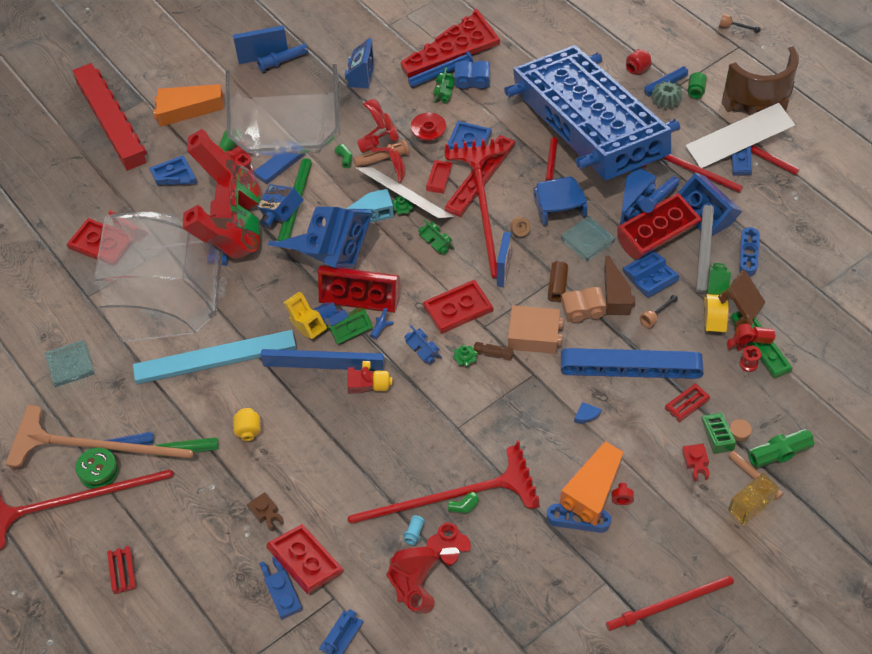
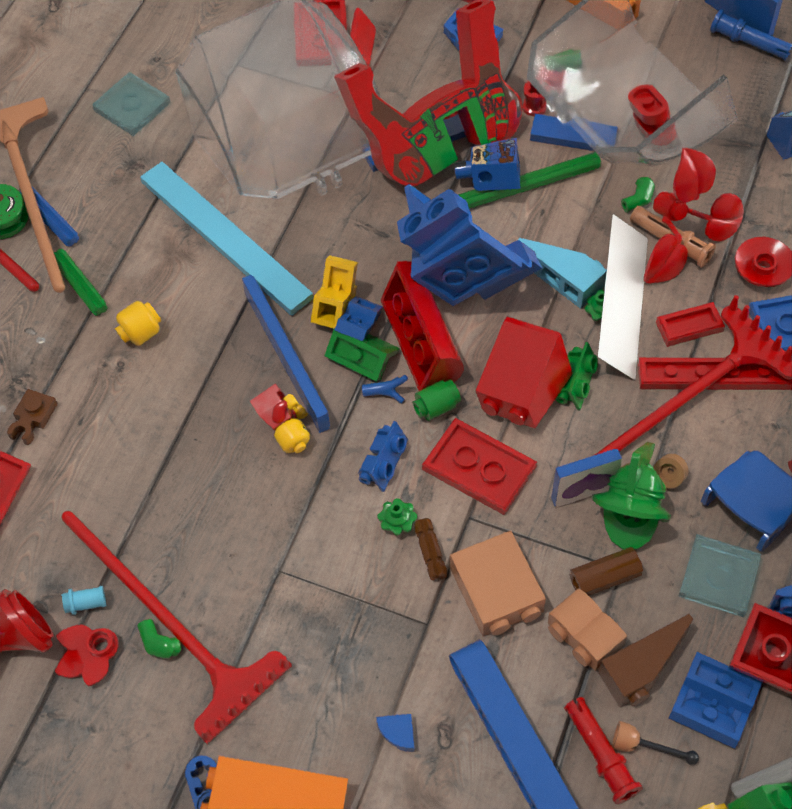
camera: 60 degrees right, 5 degrees up
(304, 118) = (649, 108): none -> red brick
(406, 304) = (436, 400): none -> green brick
(424, 254) = (523, 373): none -> red slope
(528, 242) = (637, 493): none -> green helmet
(660, 330) = (610, 764): none -> red pin

